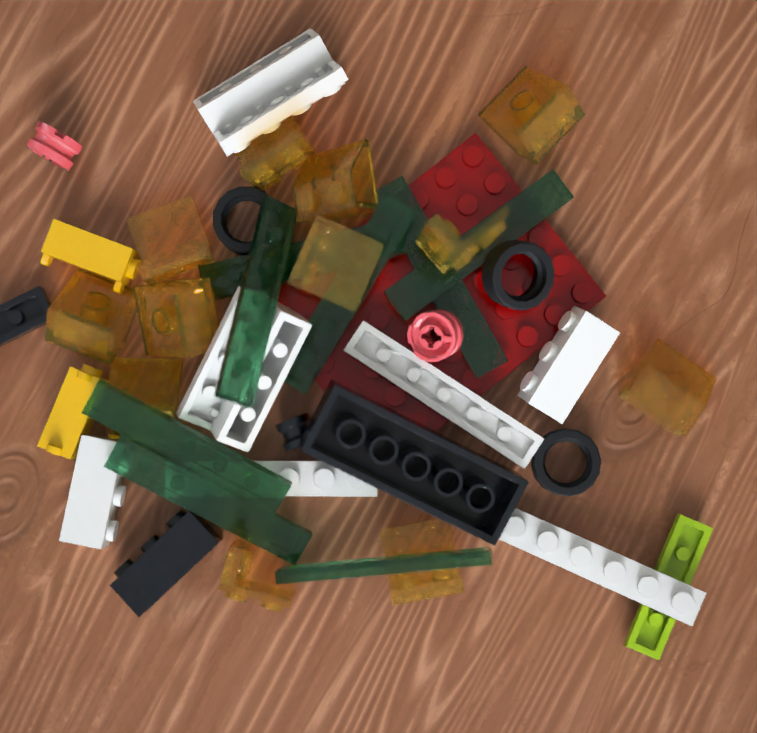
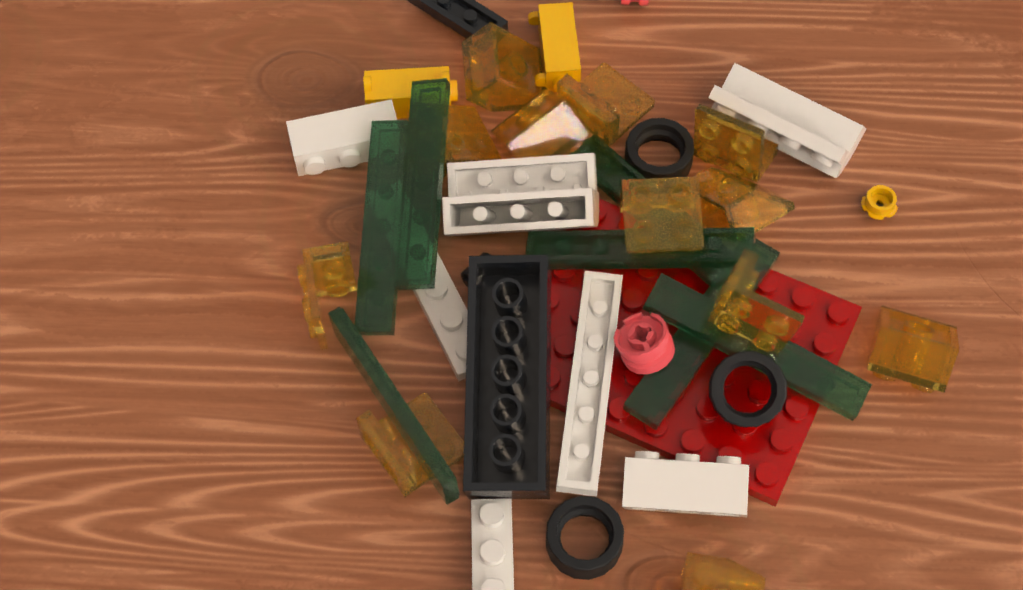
camera: 65 degrees right, 25 degrees down
(164, 561) = (302, 217): black brick -> none
(256, 303) = (582, 168): clear green tile -> none
(388, 51) = (882, 195): none -> yellow plate

